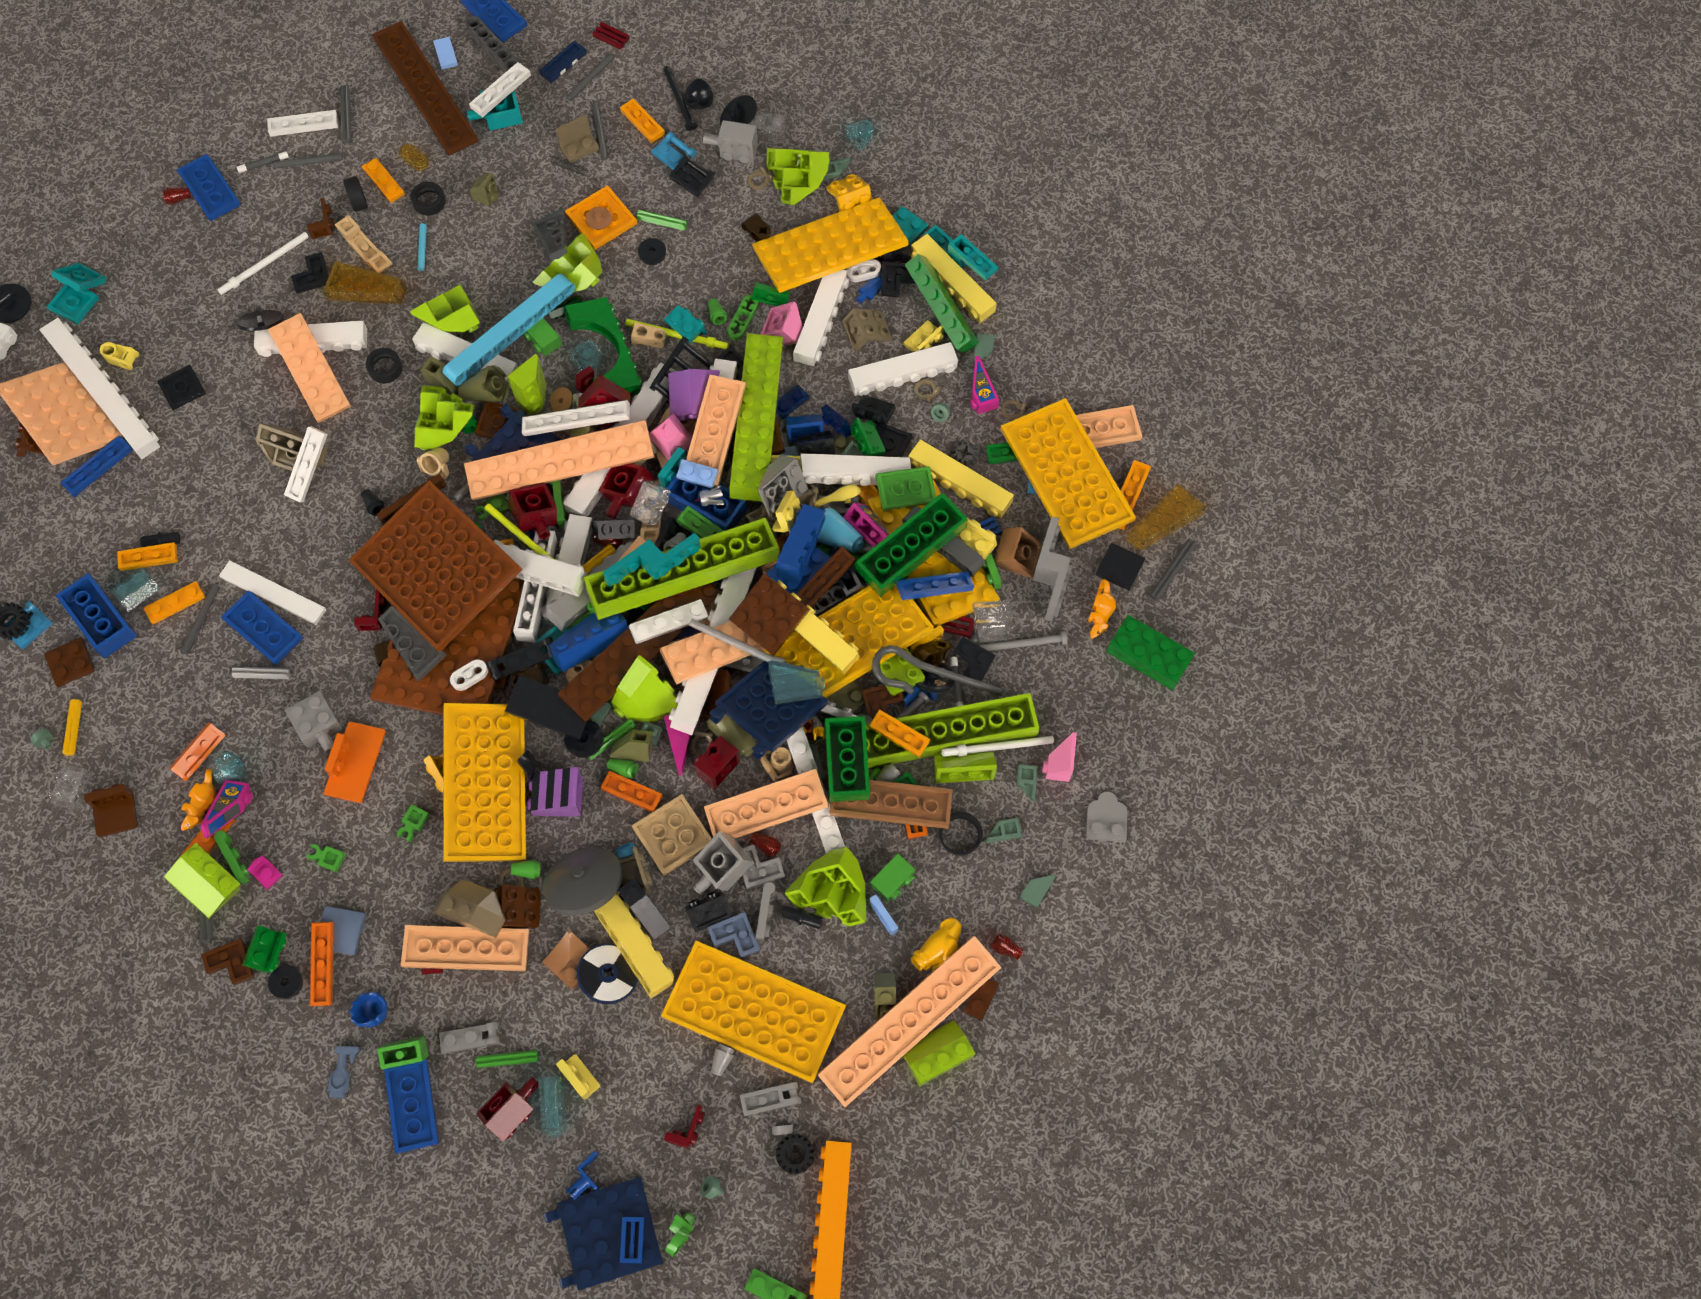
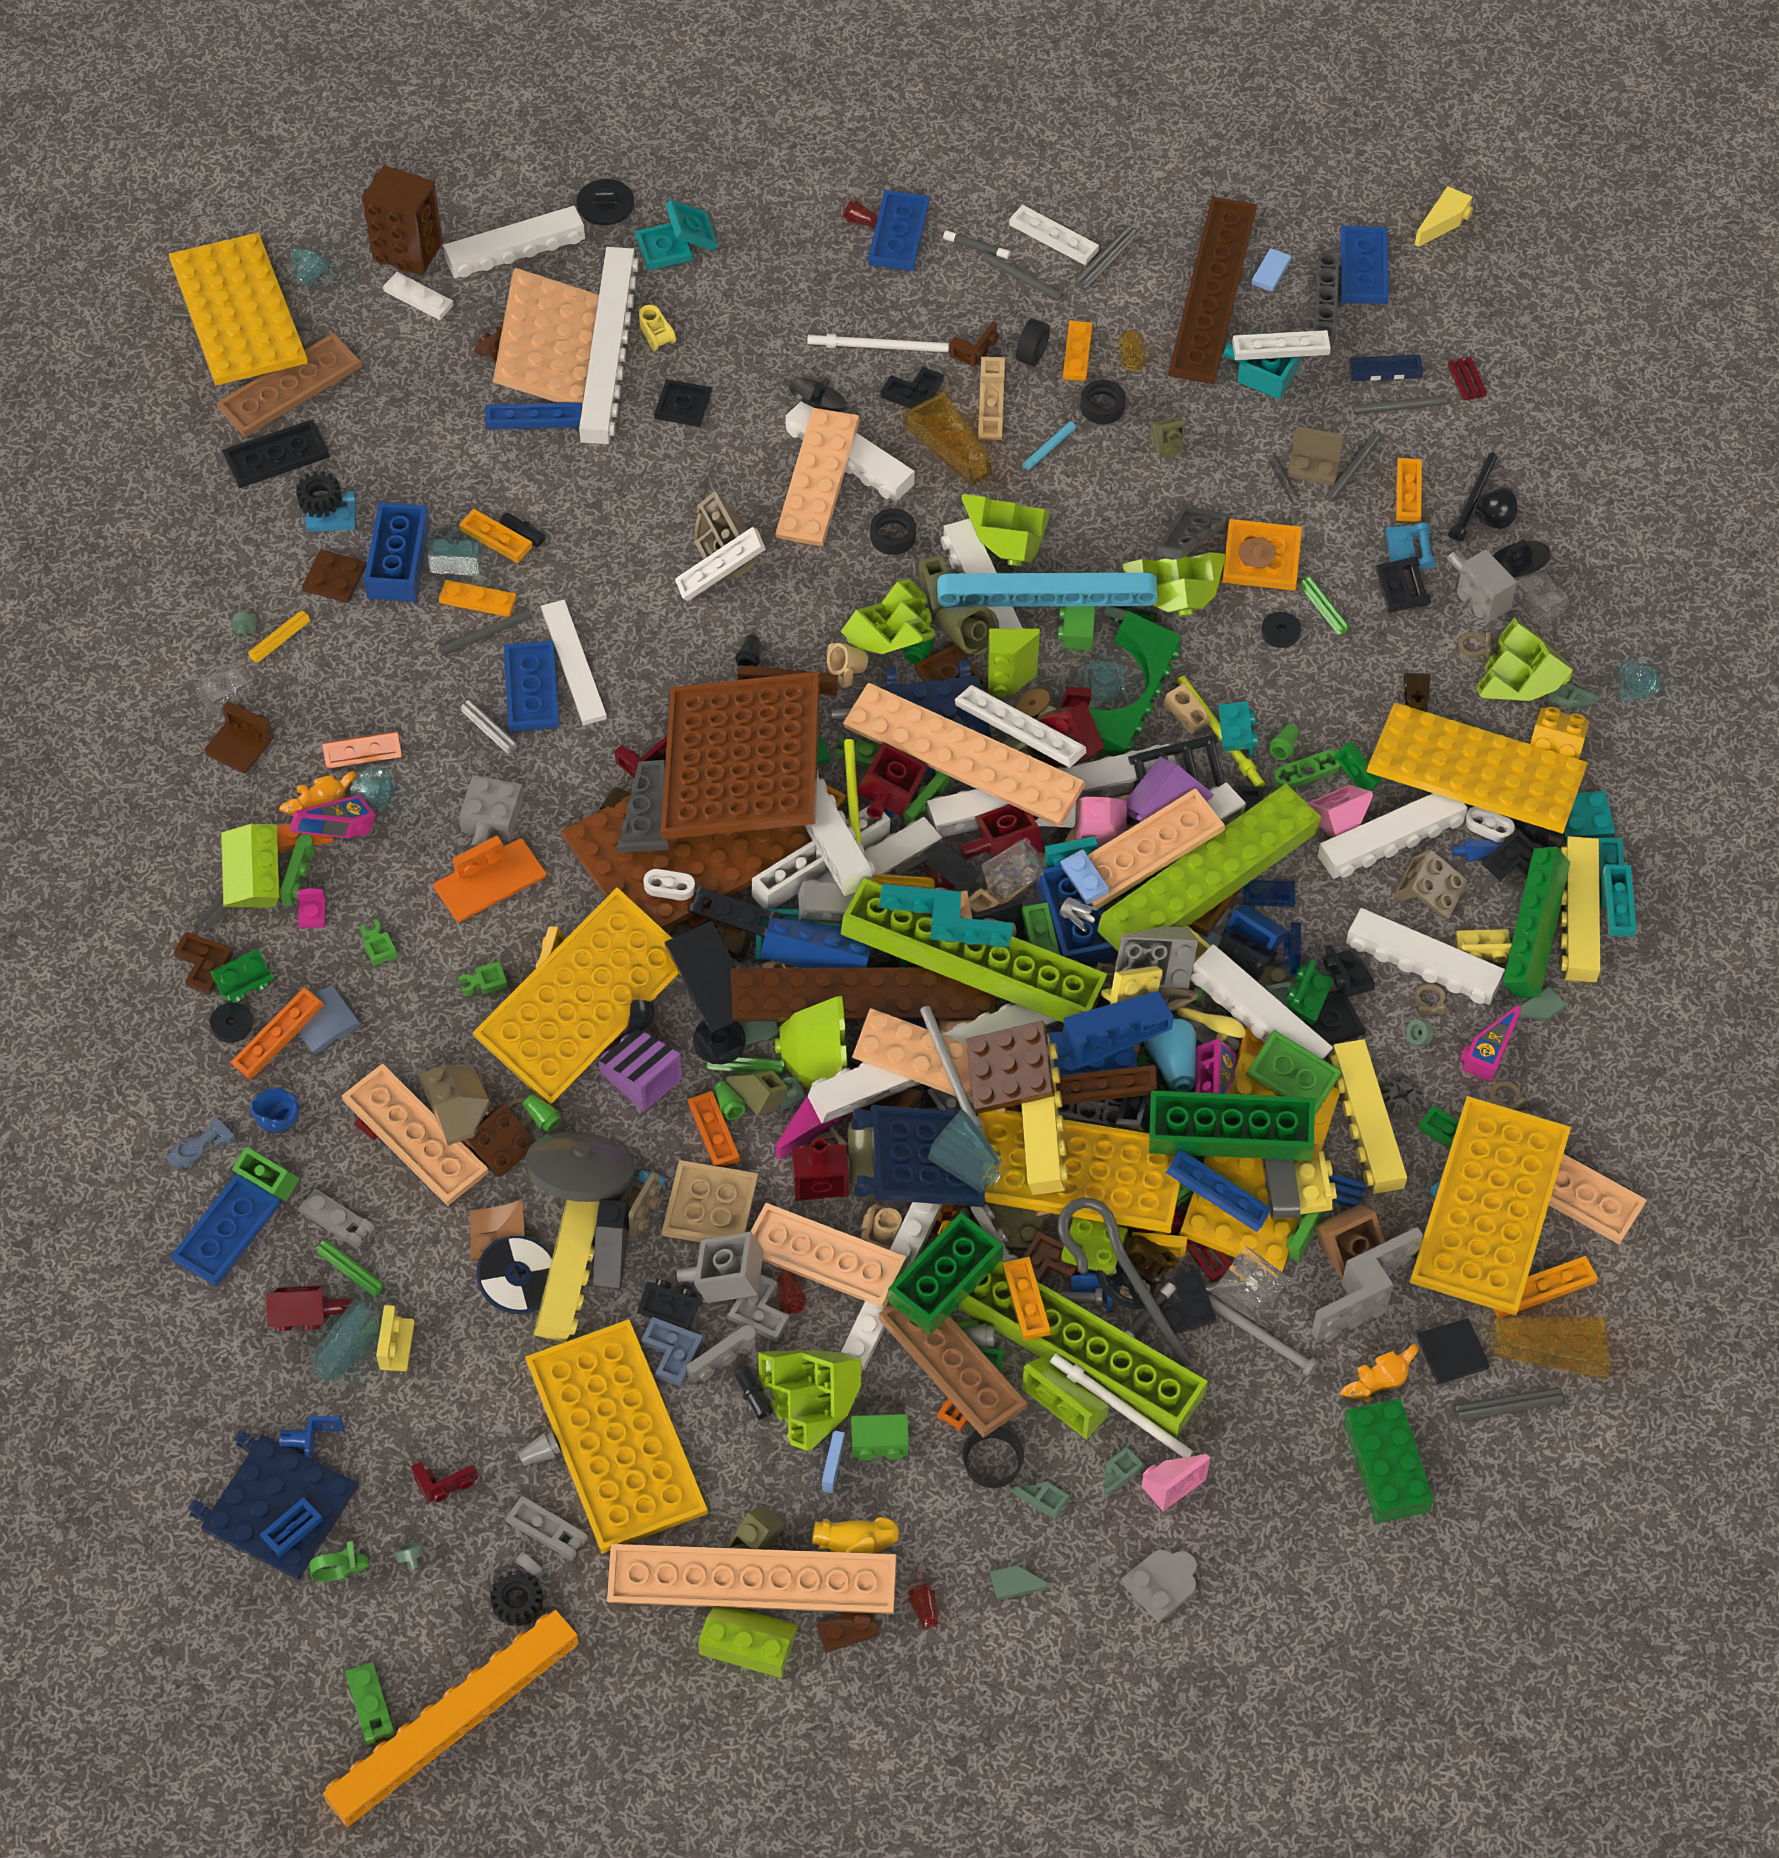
camera: 45 degrees right, 10 degrees down
(668, 621) = (908, 994): white plate -> none

